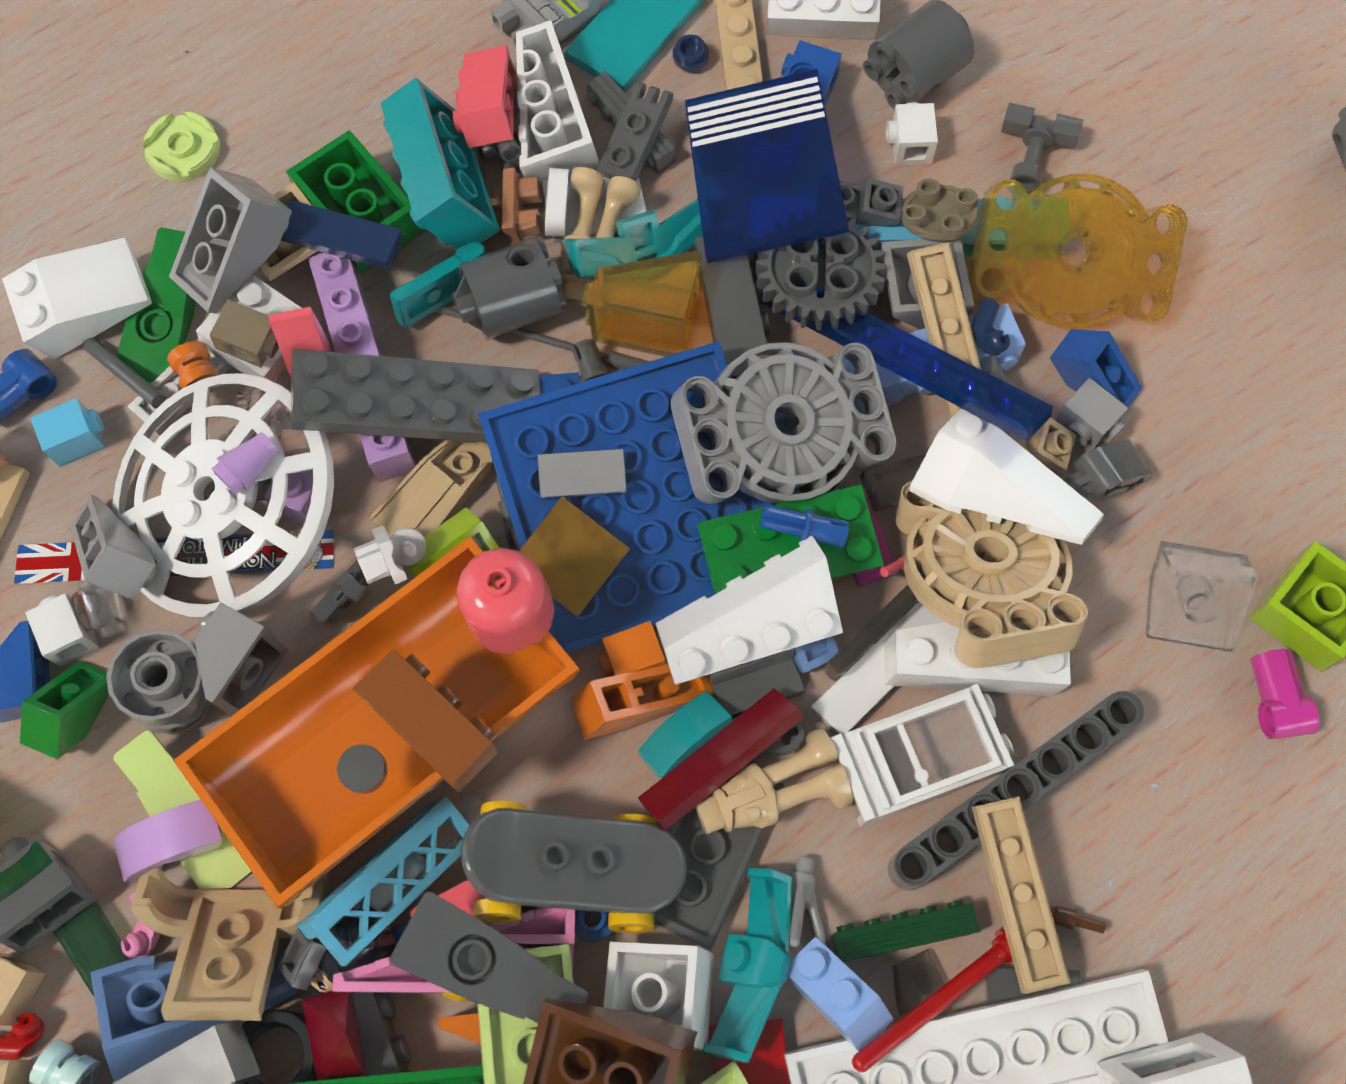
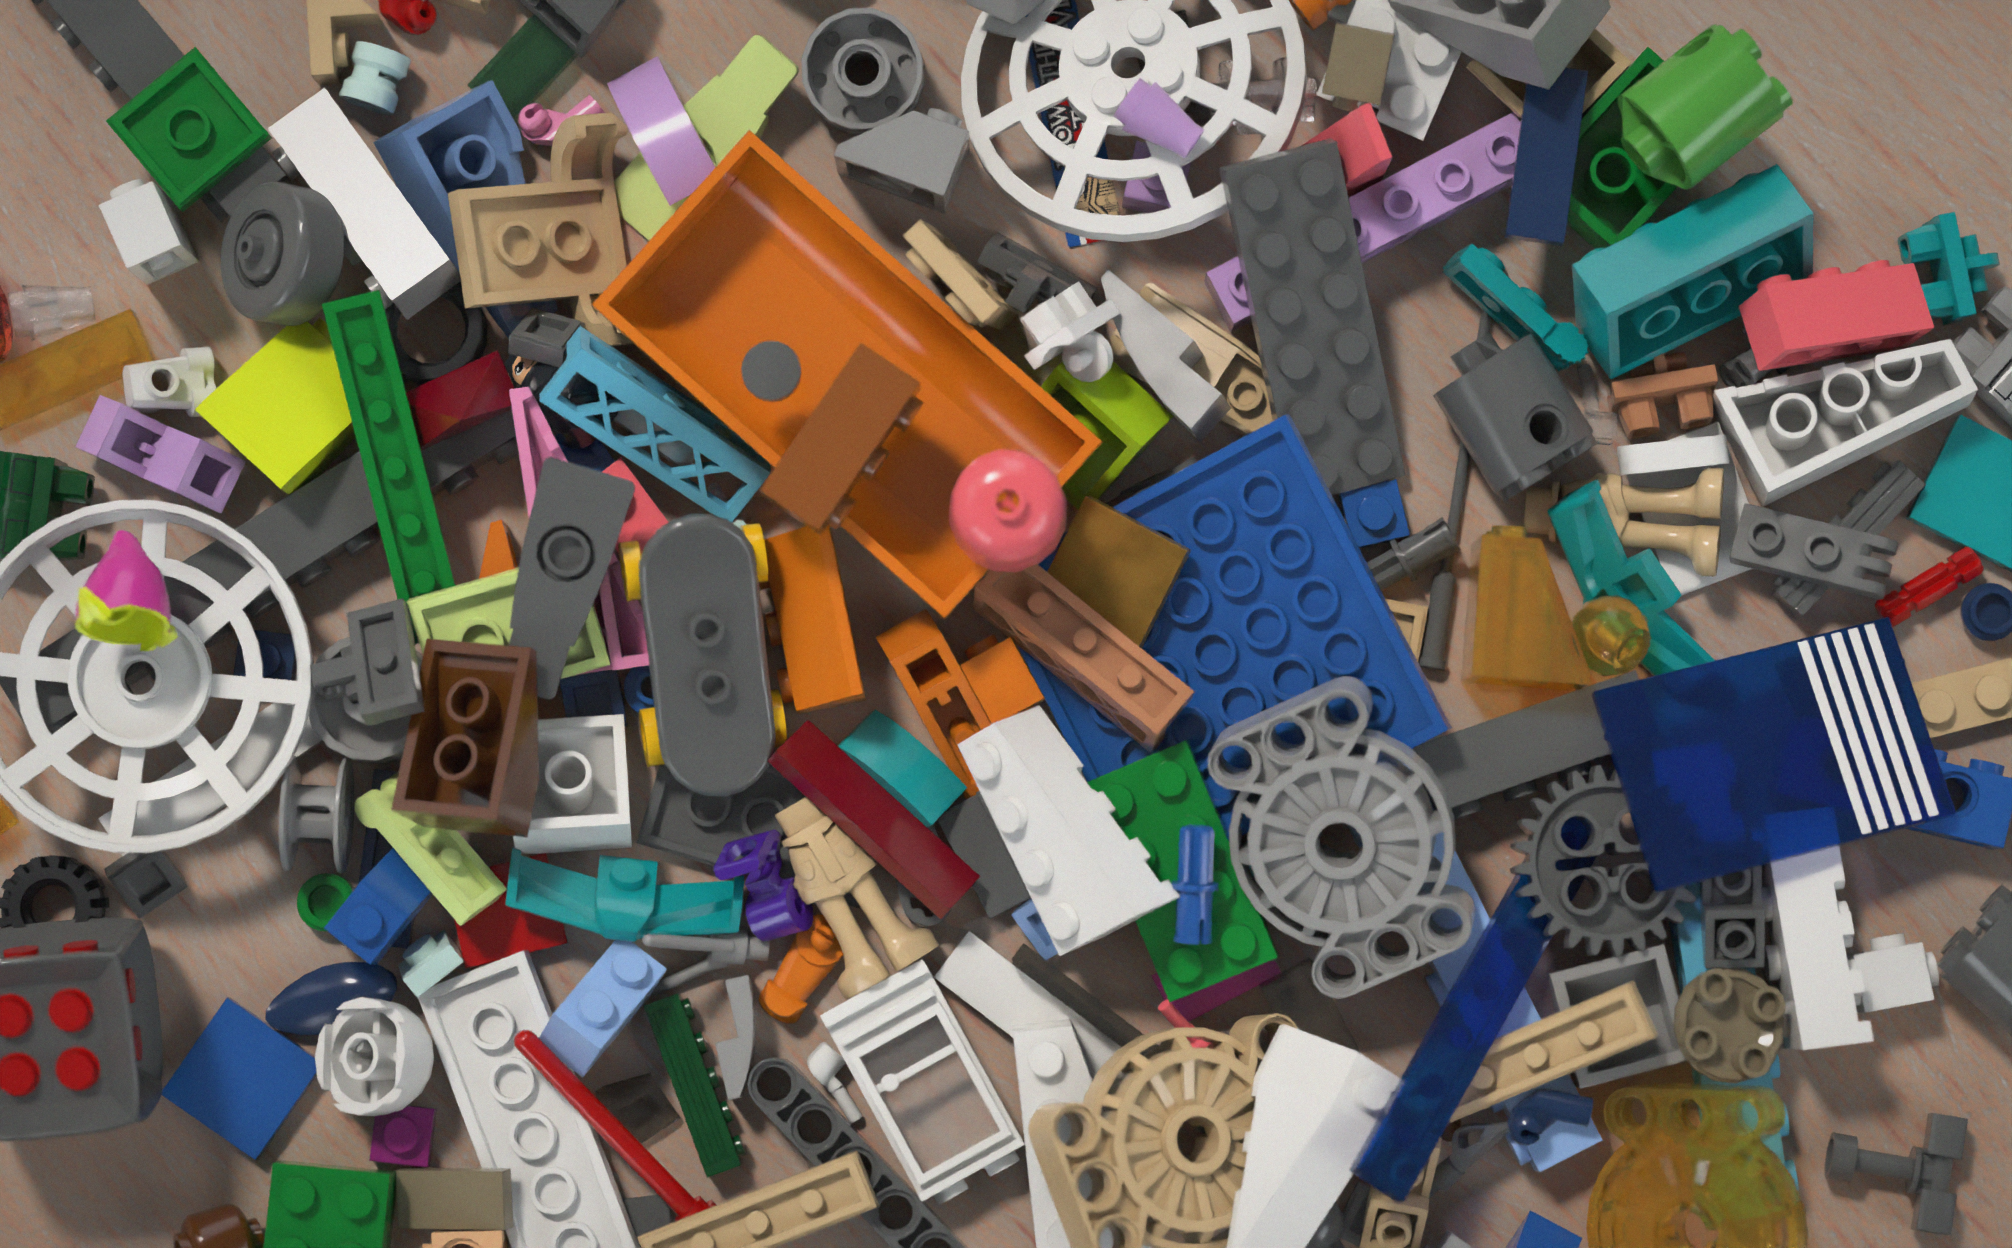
camera: 80 degrees right, 15 degrees up
(321, 625) = (944, 263): none -> tan plate
(328, 128) = (1700, 107): none -> bright green cylinder
(424, 504) = (1165, 359): none -> light grey slope
(458, 40) = (1954, 265): none -> teal hips
(565, 778) = (811, 622): none -> orange slope
(581, 473) = (1225, 571): light grey tile -> none
(590, 965) = (593, 695): none -> dark blue plate
(622, 583) = (1084, 651): none -> nougat fence
(667, 241) = (1612, 634): none -> clear yellow piece
(668, 80) = (1930, 586): none -> red axle
(772, 847) = (773, 902): none -> dark purple leg
(821, 832) = (801, 972): none -> orange piece
(883, 891) = (738, 1053): none -> light grey slope
(899, 829) = (824, 1065): none -> white hand
(902, 158) = (1809, 951): none -> white wedge

